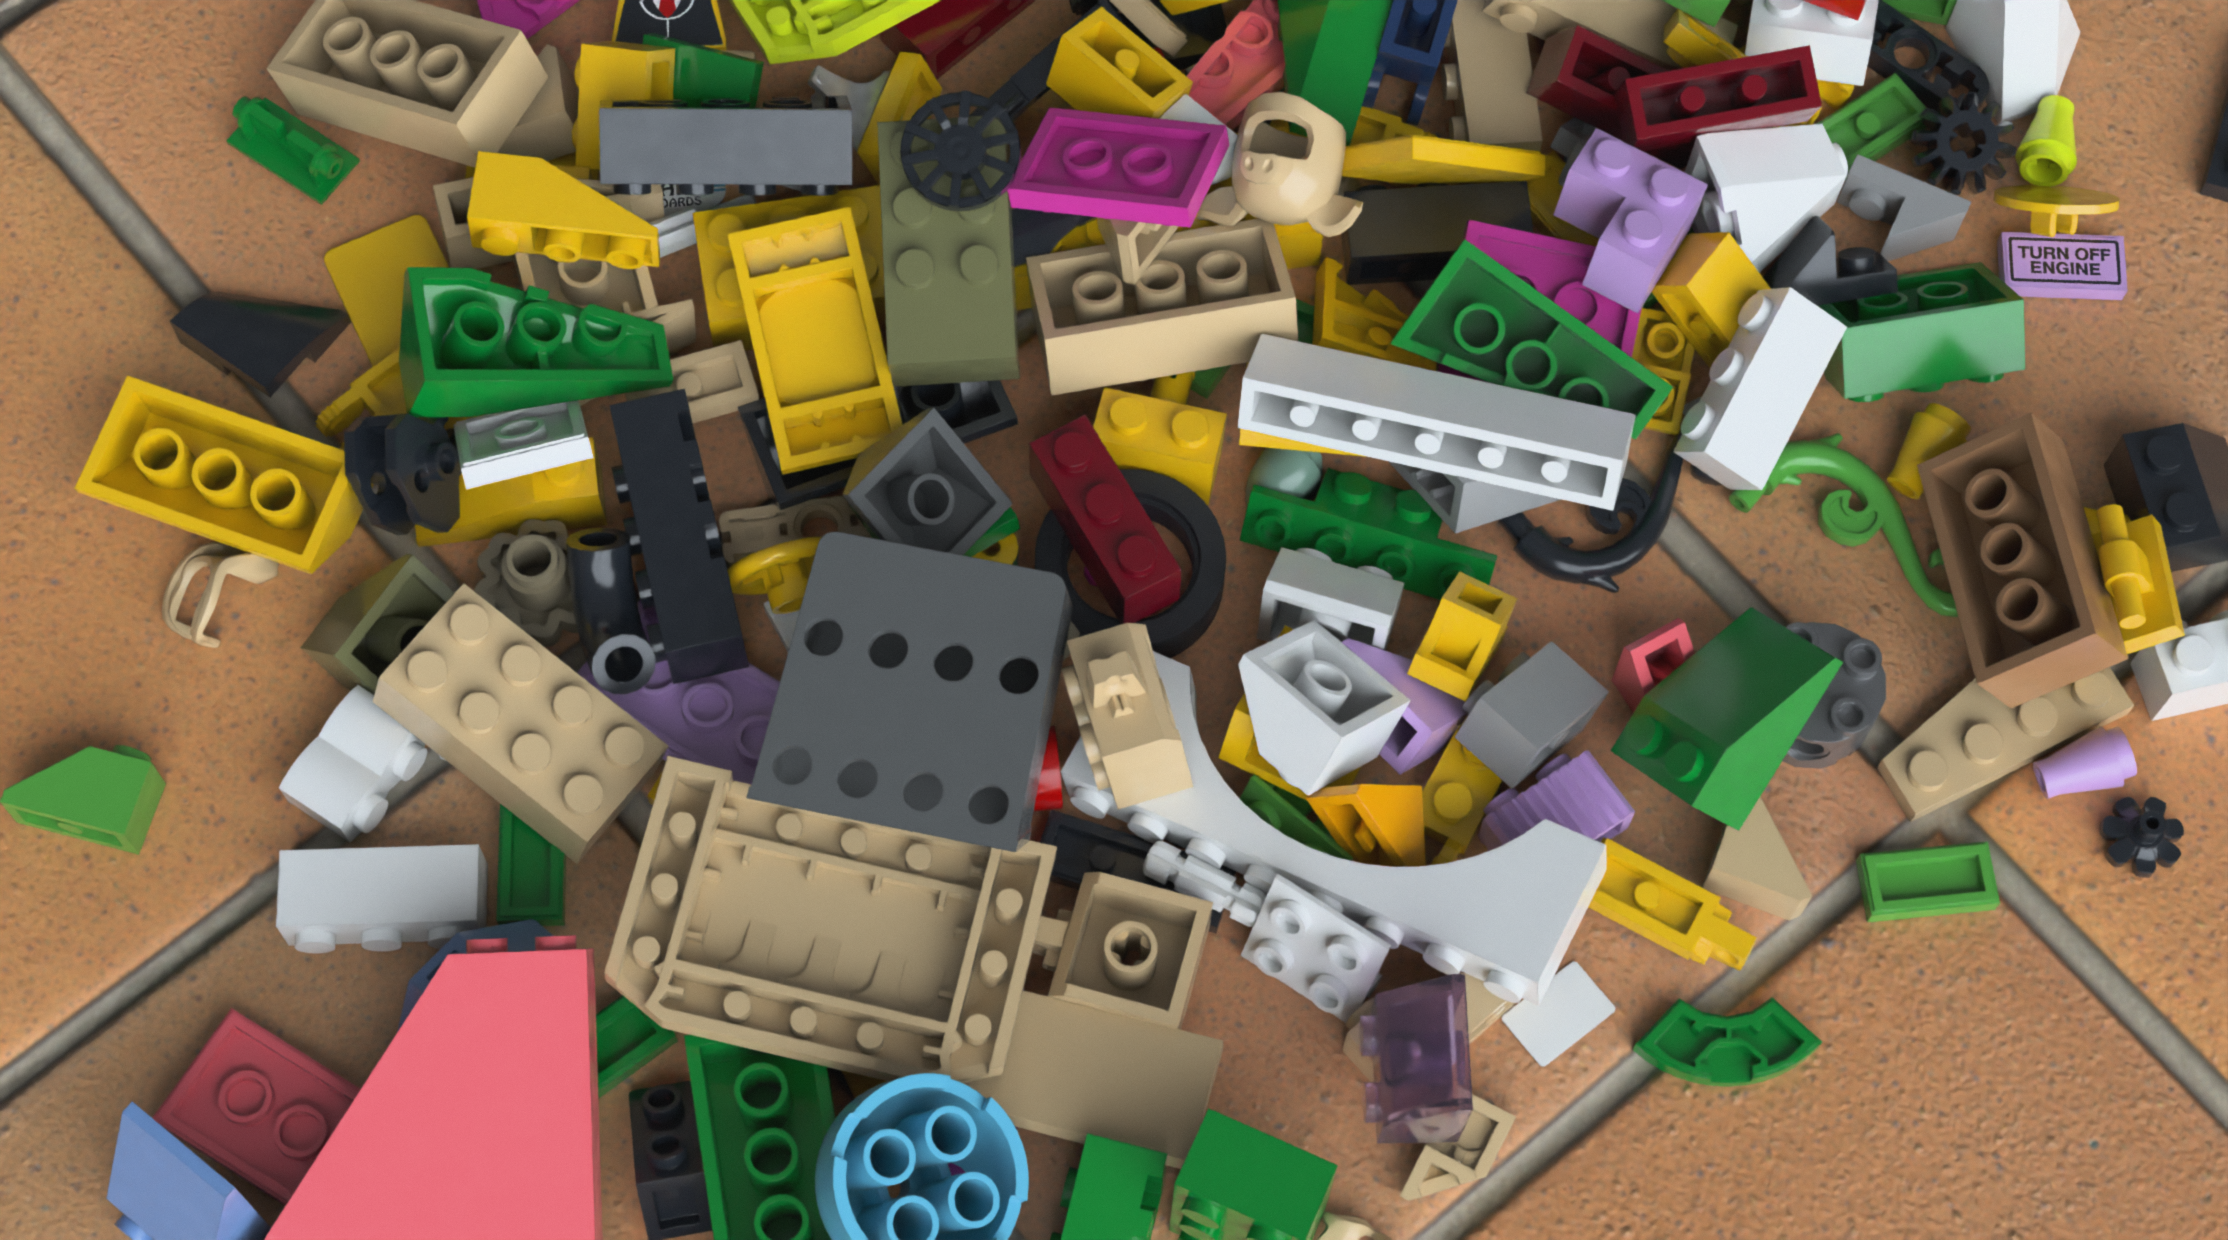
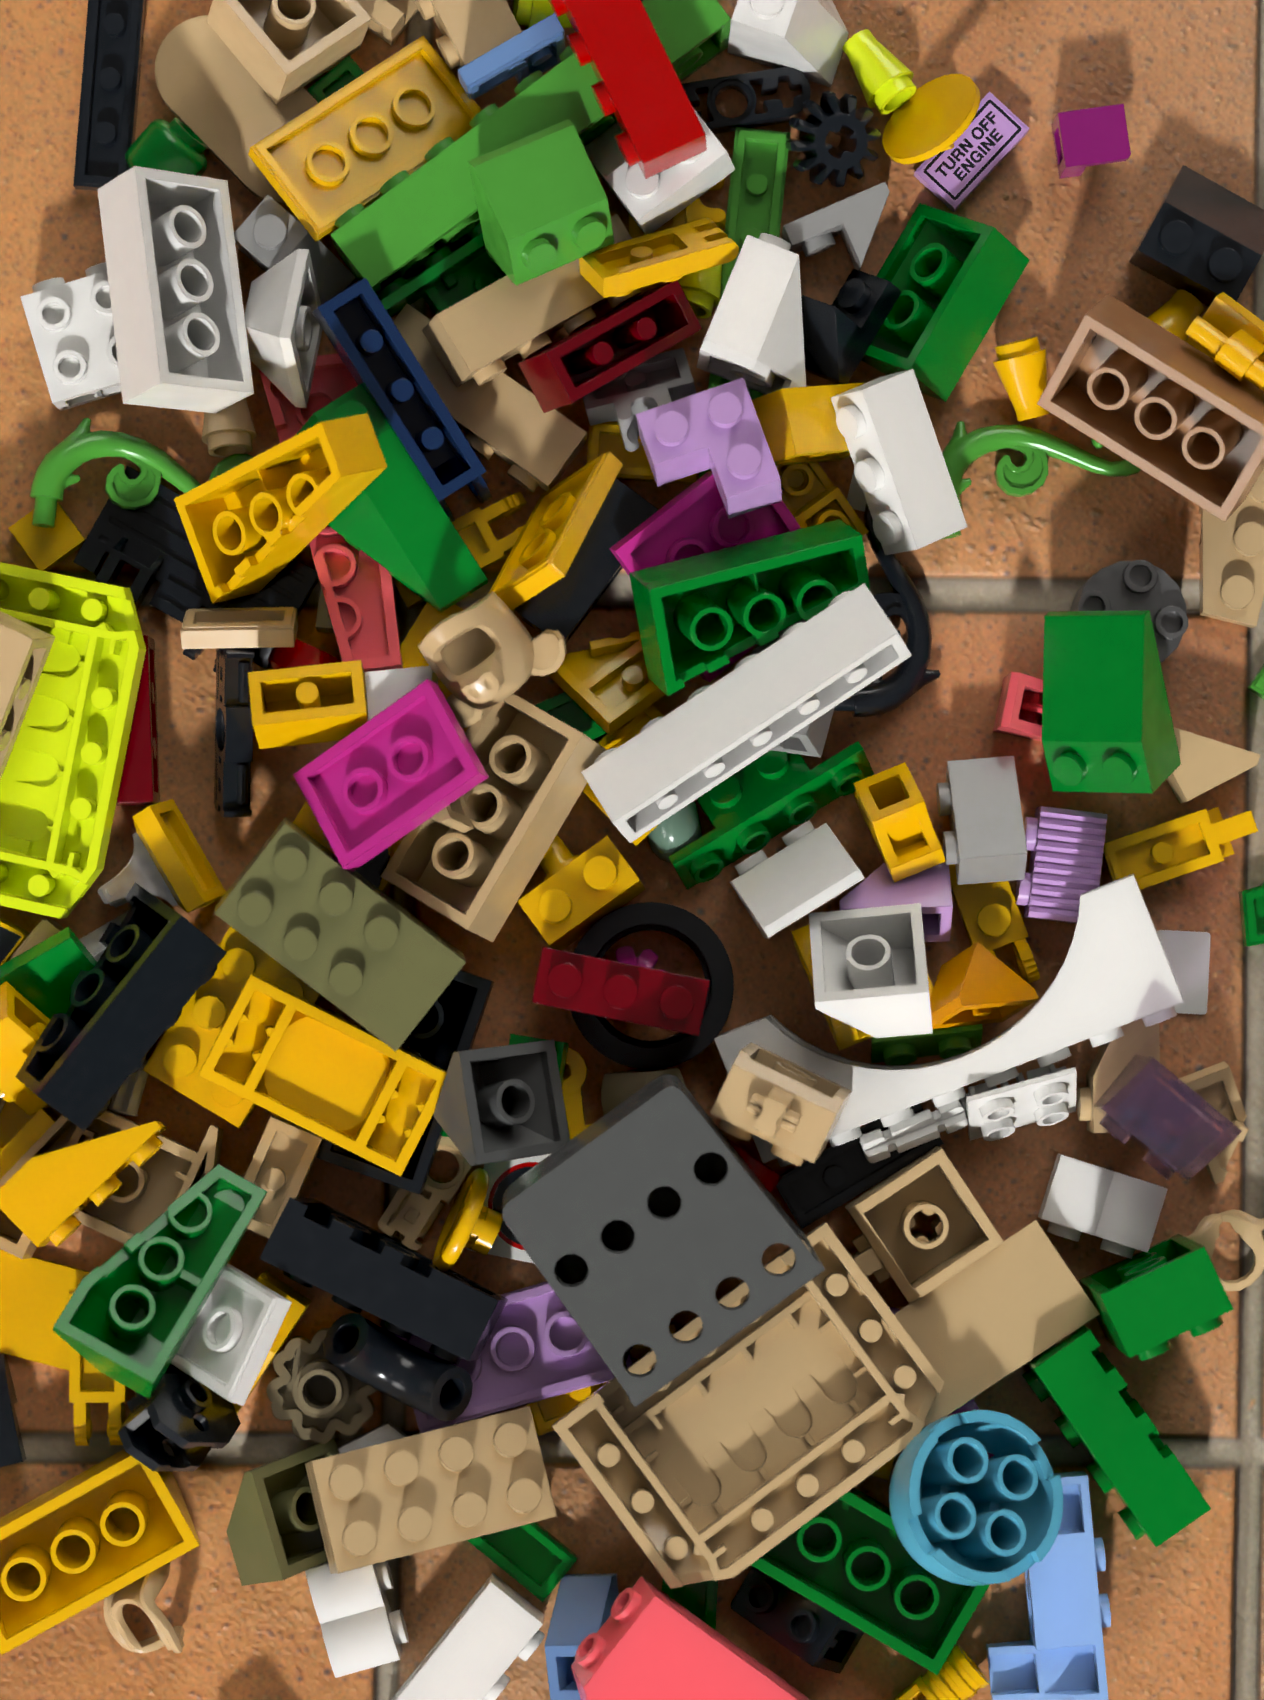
camera: 50 degrees left, 20 degrees up
(960, 151) = (294, 882): black wheel -> none
(1288, 1096) = (1101, 1204): none -> white brick
(1718, 97) = (686, 310): dark red brick -> none
(2170, 333) = (1090, 138): none -> magenta panel

